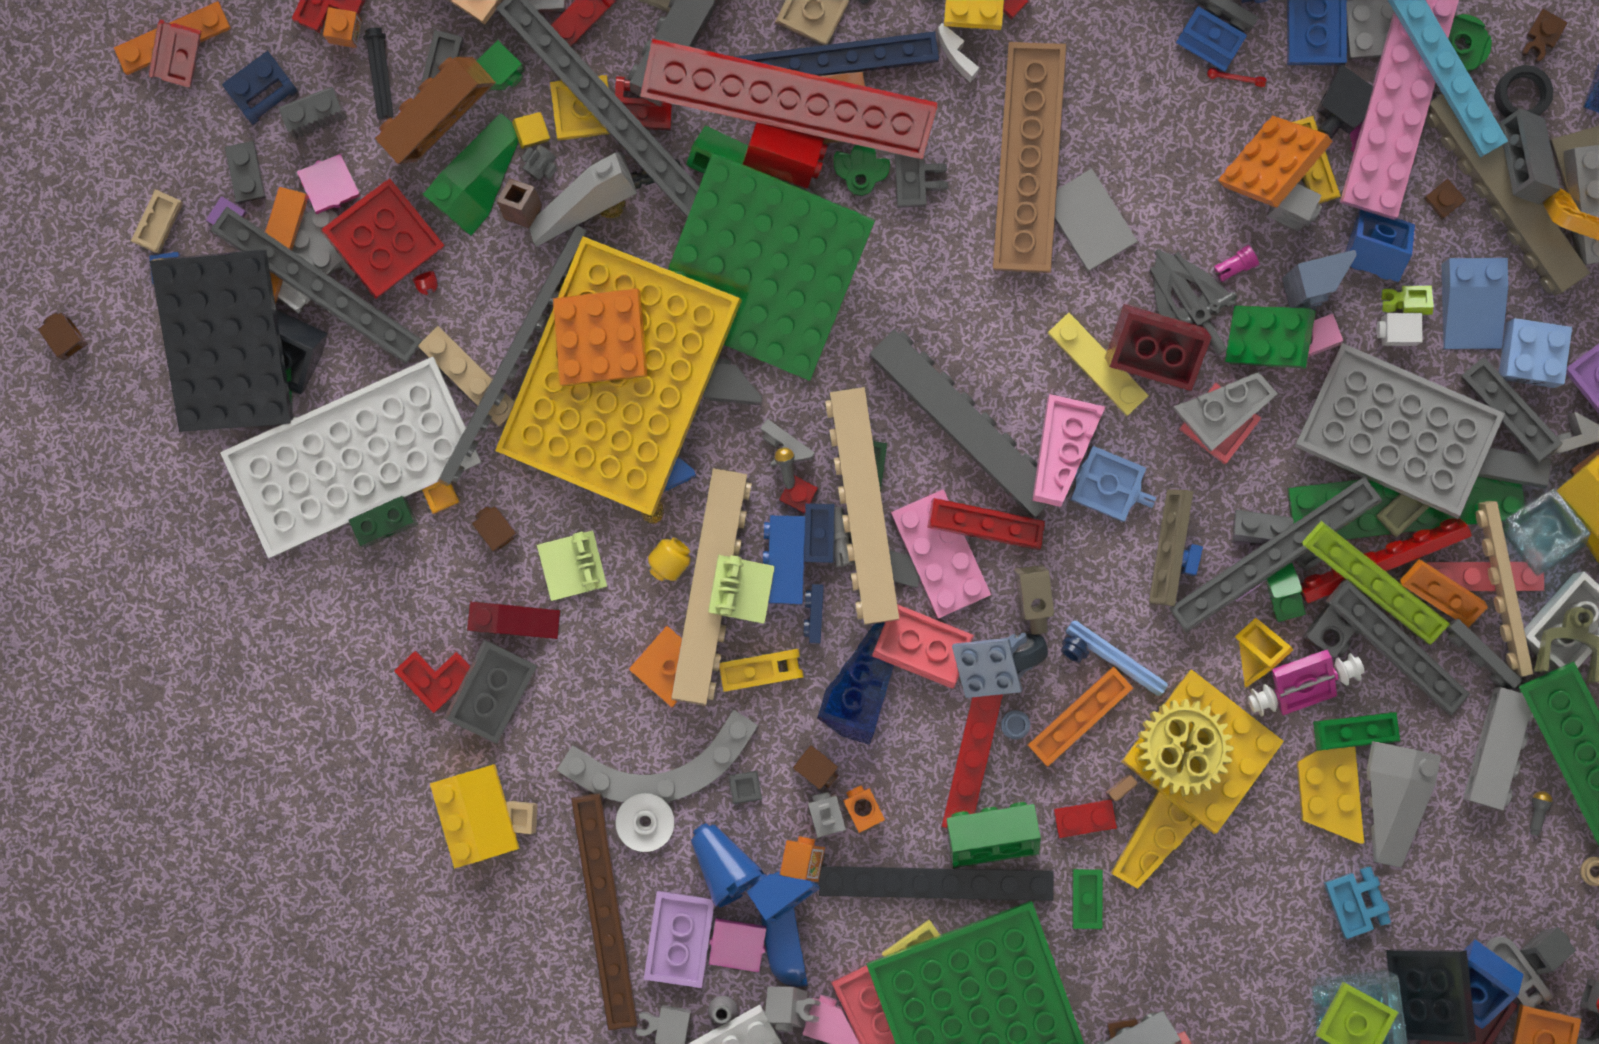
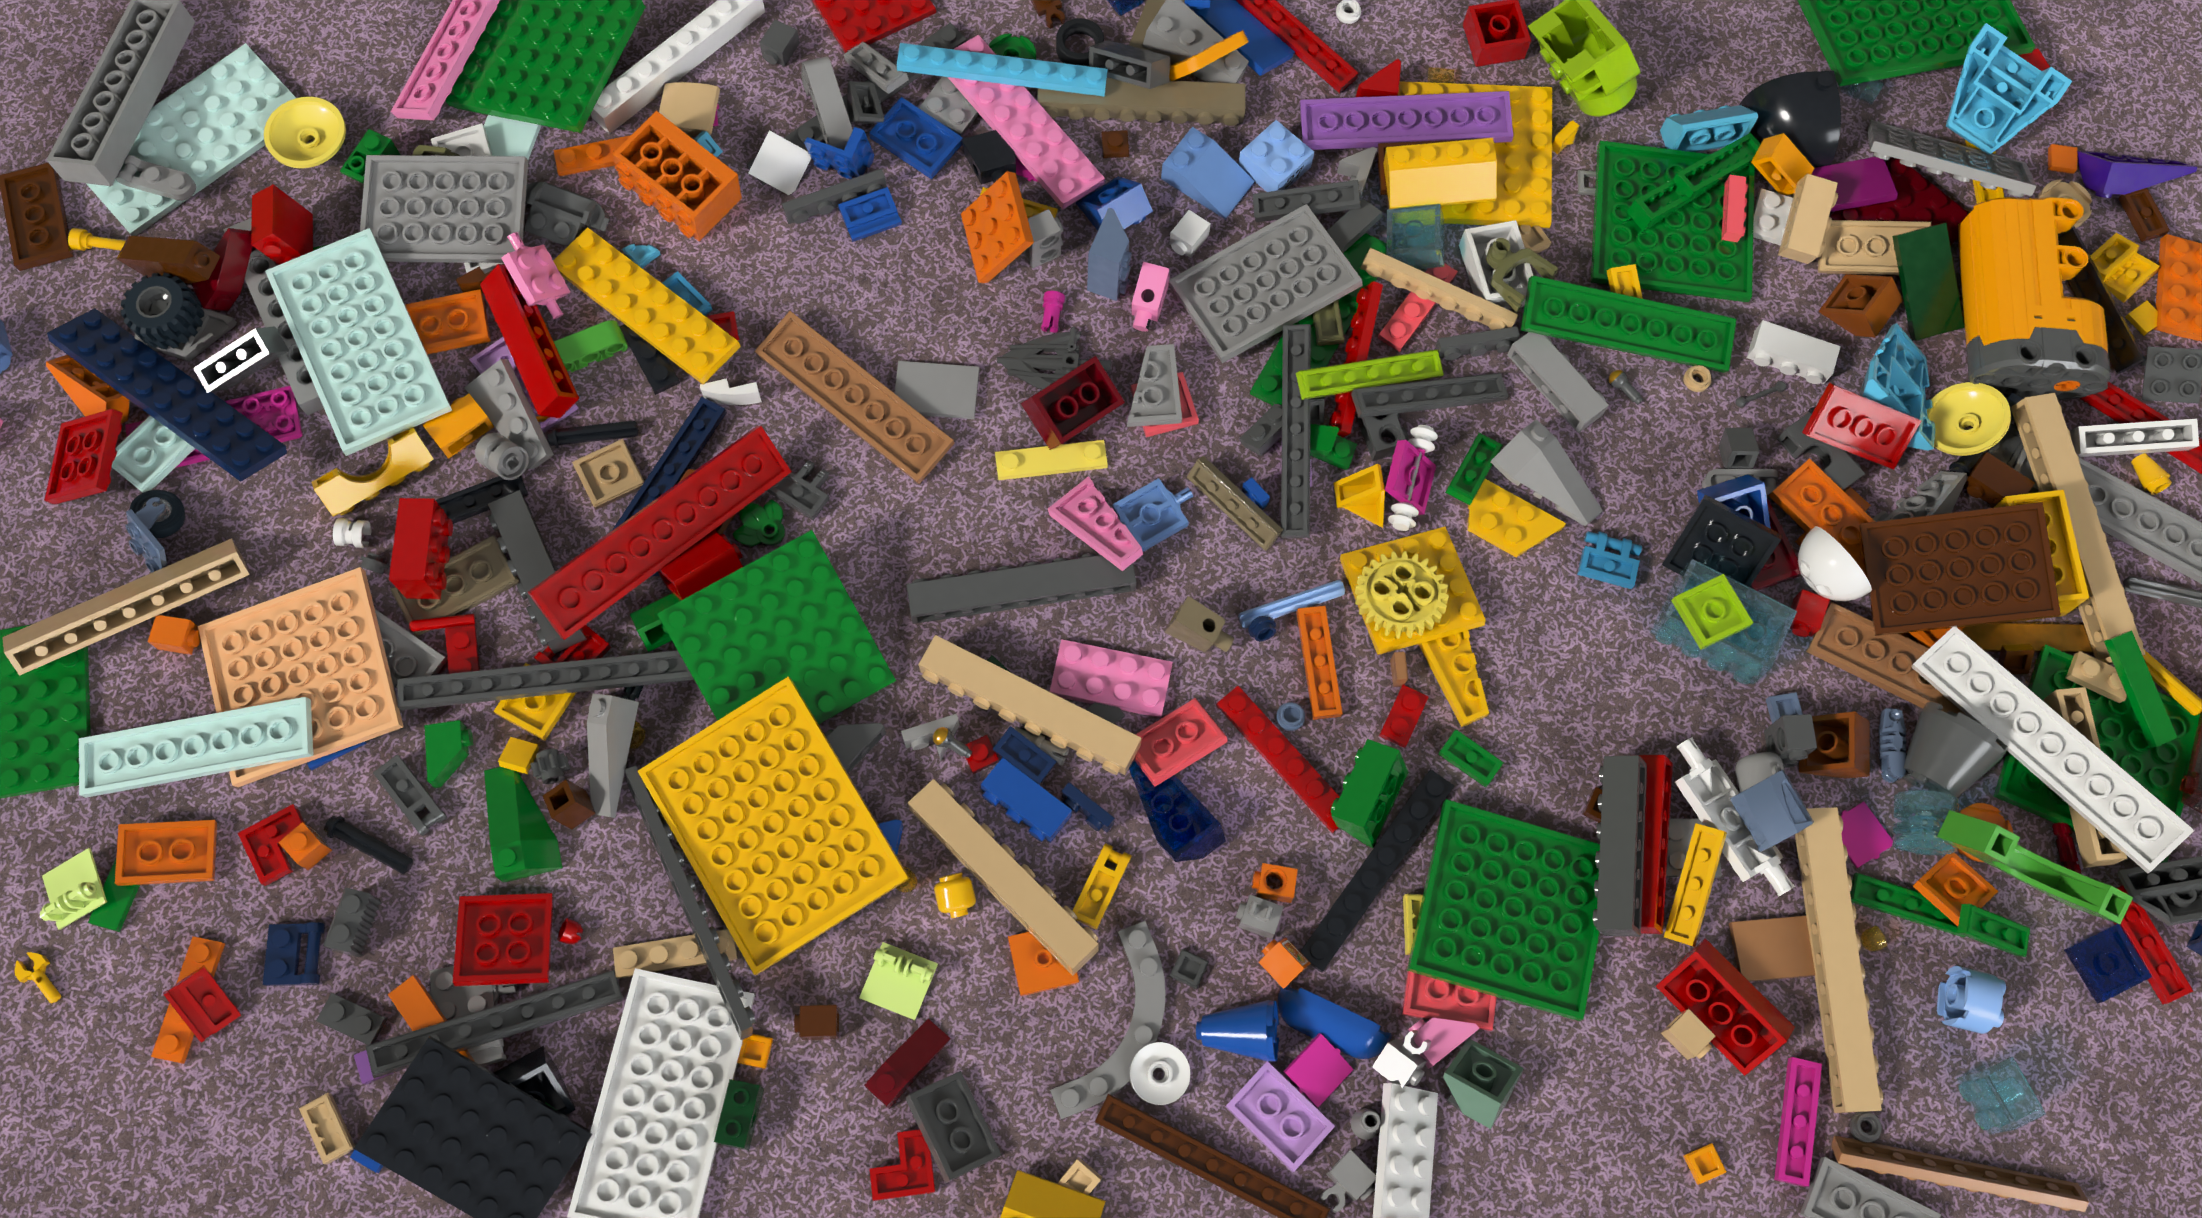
camera: 60 degrees left, 15 degrees down
(328, 184) = (421, 954): piece -> none
(434, 109) = (435, 813): dark orange brick -> none
(600, 337) = (730, 814): orange plate -> none
(741, 589) = (1023, 847): yellowish green hinge -> none
(779, 894) = (1301, 996): blue slope -> none
(816, 768) = (1214, 896): reddish brown brick -> none
(986, 524) = (1113, 625): red tile -> none
(998, 664) = (1232, 691): sand blue plate -> none
(1259, 80) = (896, 231): red hinge -> none
(1270, 336) = (1126, 320): green plate -> none
(1411, 299) = (1171, 214): lime plate -> none
(1443, 593) = (1410, 336): orange plate -> none

